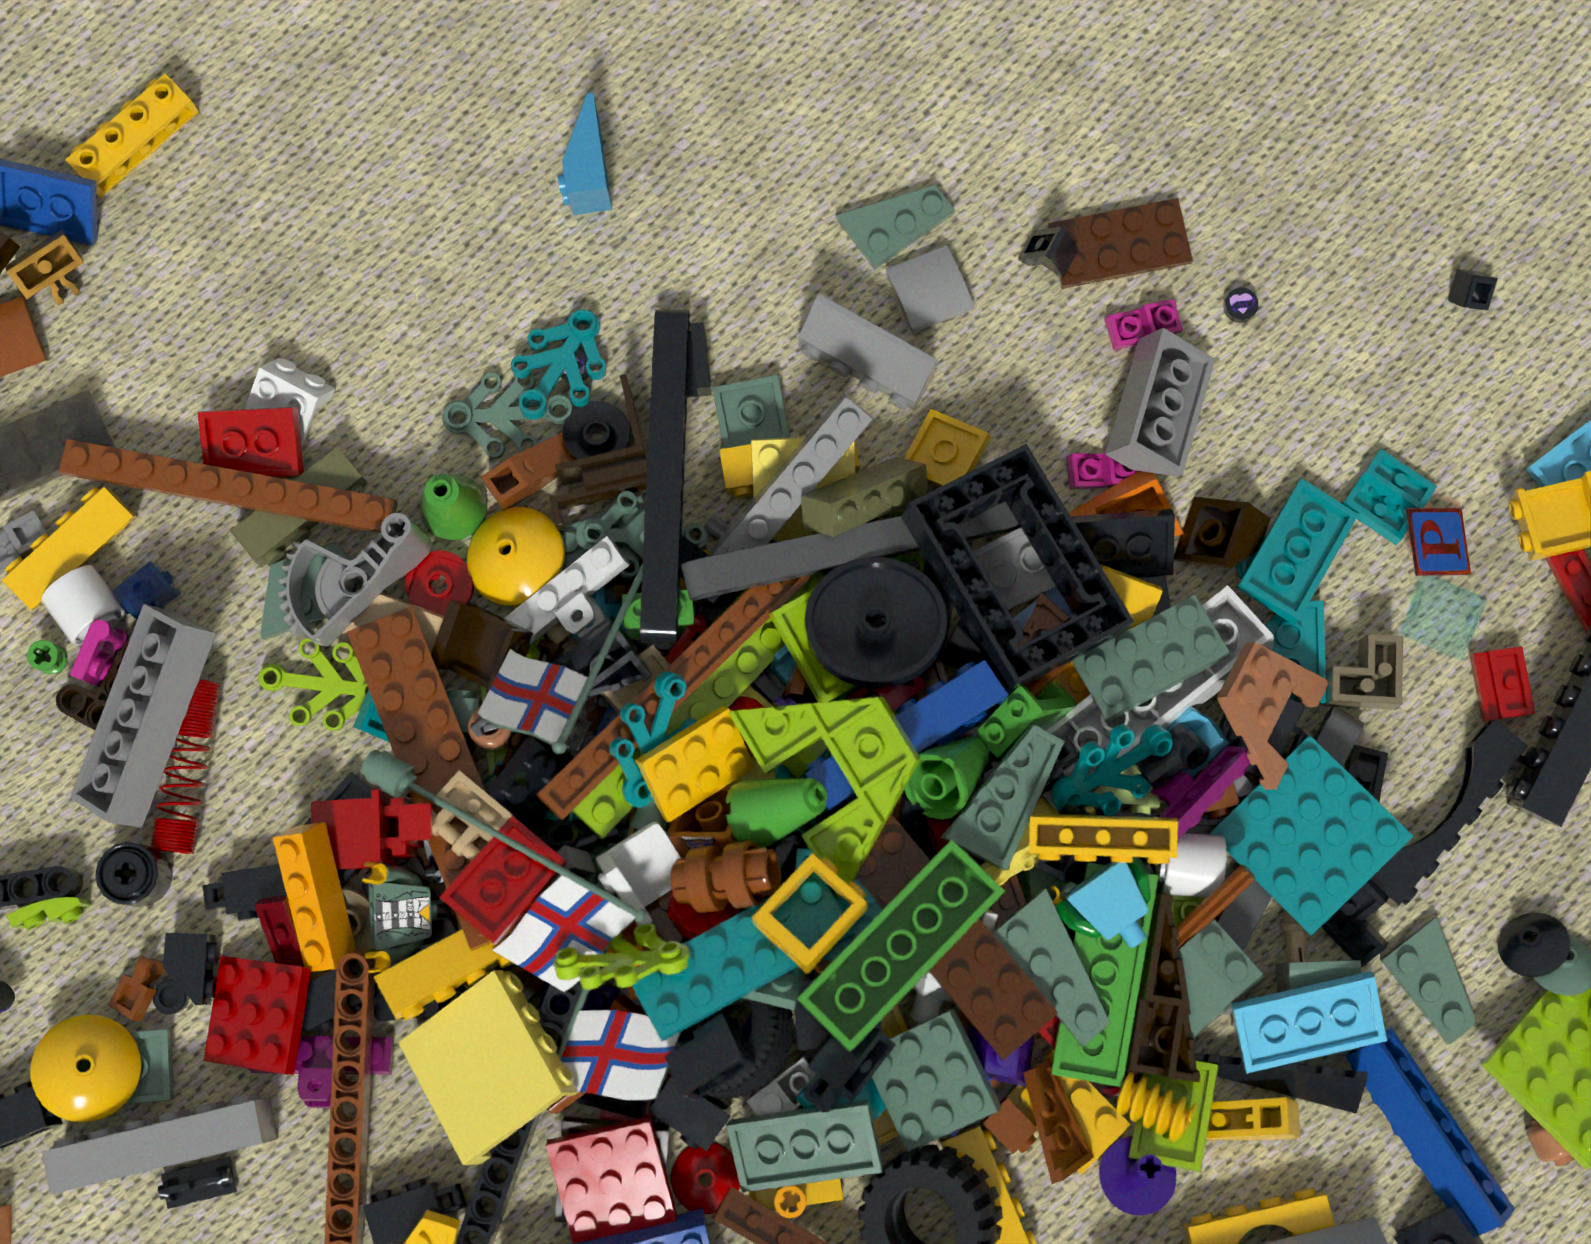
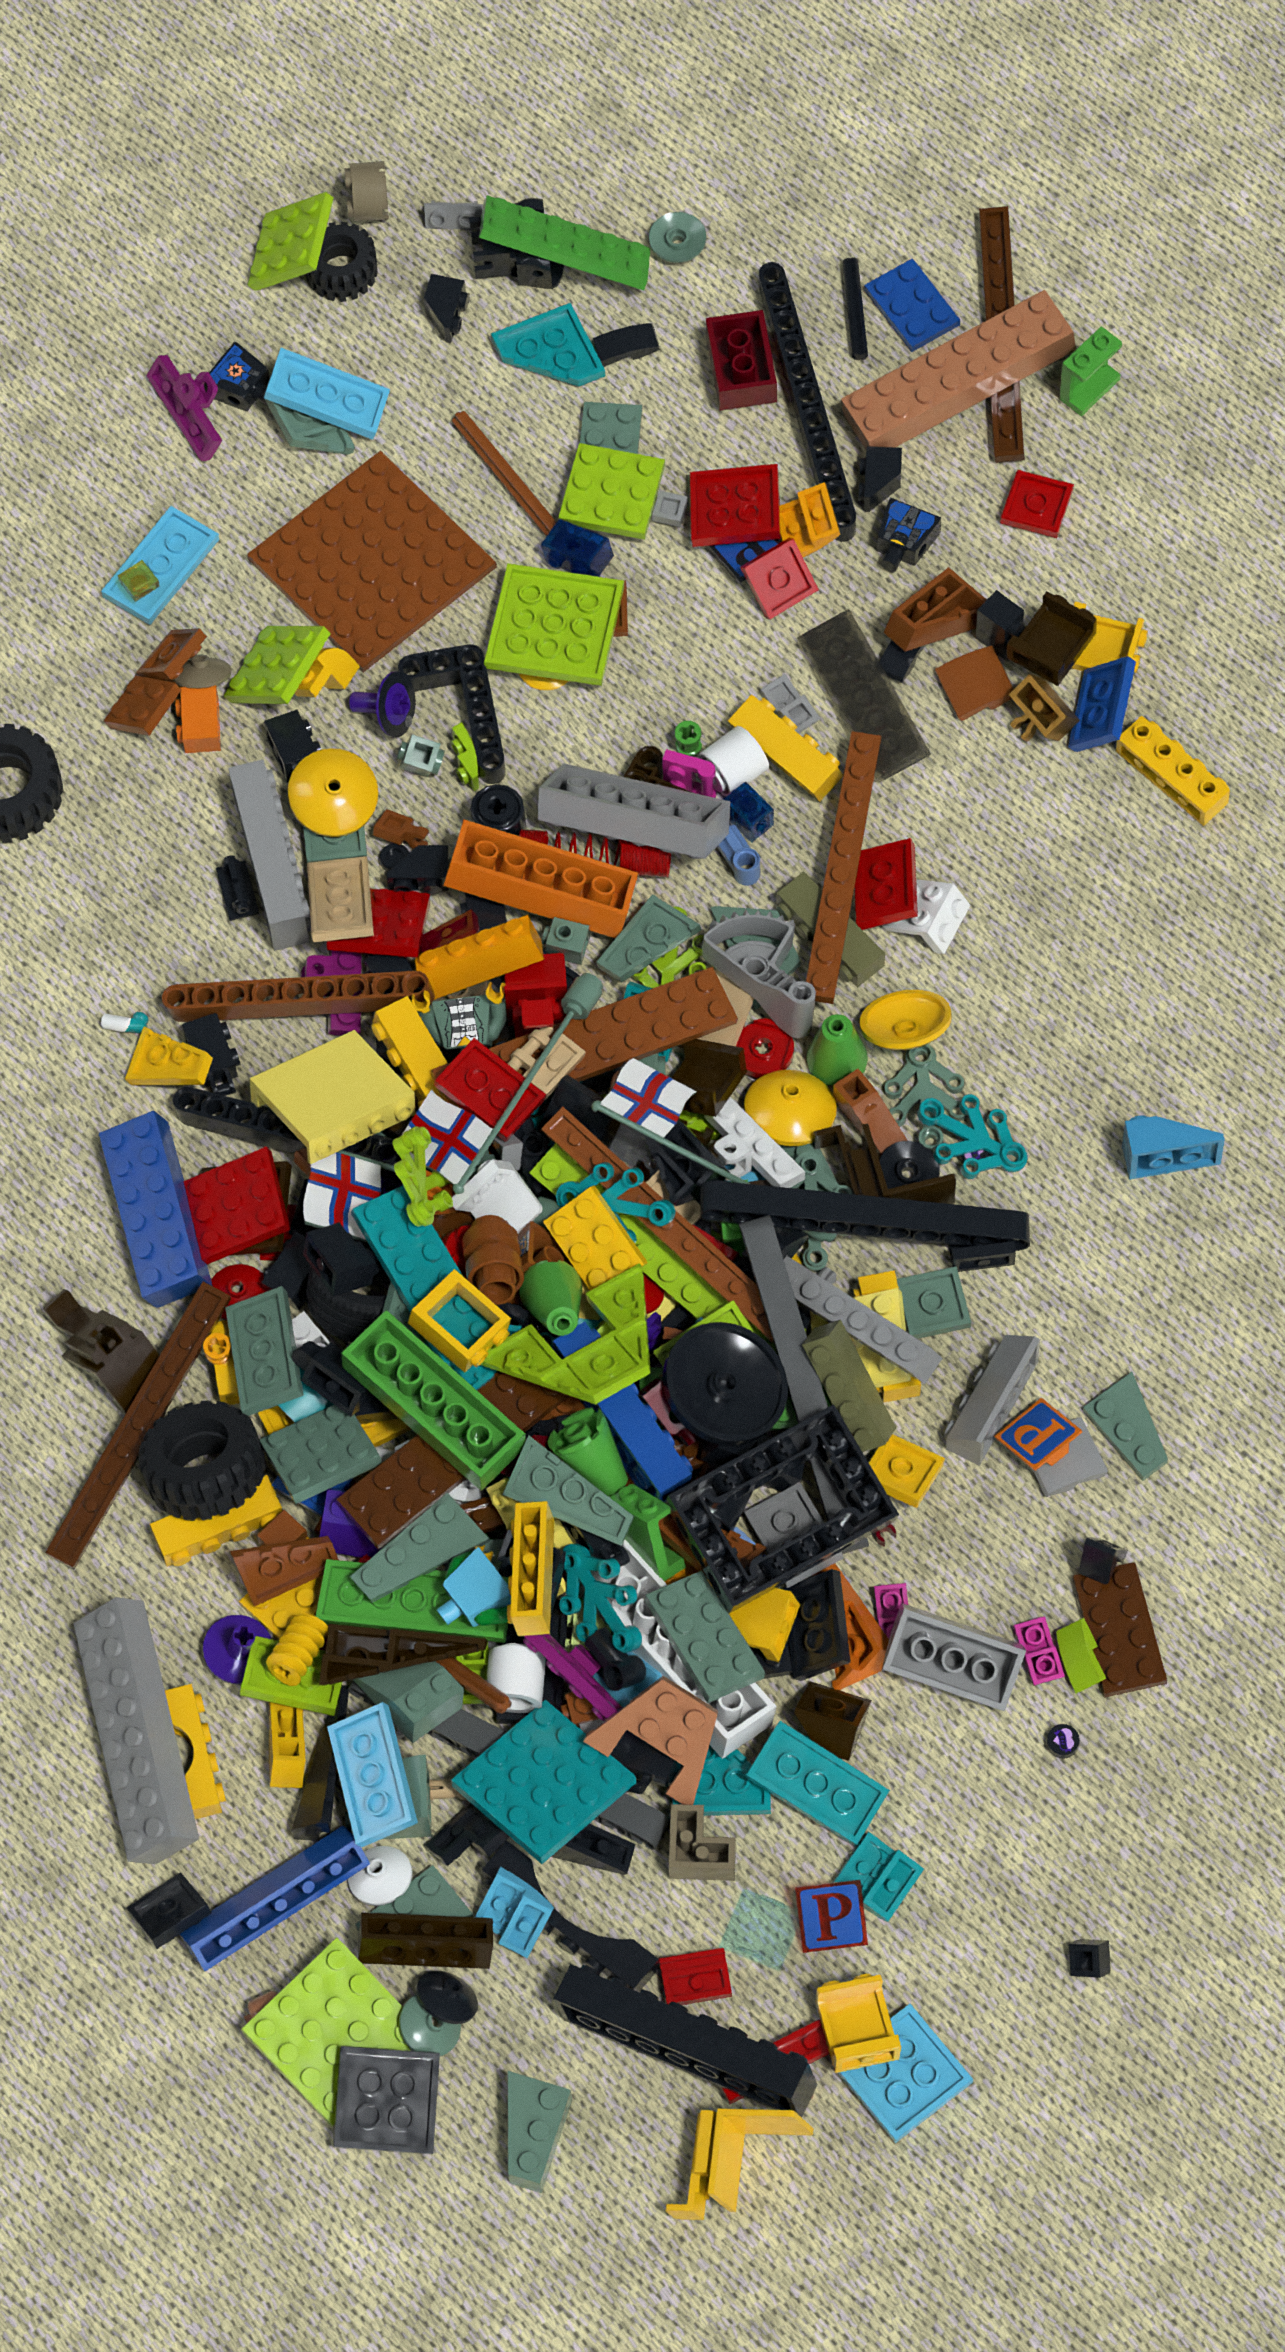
camera: 90 degrees right, 15 degrees down
(44, 964) = (420, 756): none -> sand green brick
(196, 603) = (737, 854): none -> medium blue piece
(221, 825) = (540, 878): none -> orange brick
(229, 1059) = (340, 899): none -> tan tile
(294, 798) = (567, 938): none -> sand green brick
(300, 707) = (646, 938): none -> sand green wing
(407, 425) = (905, 1019): none -> yellow dish
(911, 307) = (1039, 1435): none -> piece
(1155, 282) = (1078, 1657): none -> lime slope
(1412, 1008) = (385, 1885): none -> white dish
(1443, 867) = (516, 1911): none -> medium azure slope
(1480, 966) = (425, 1940): none -> dark brown brick

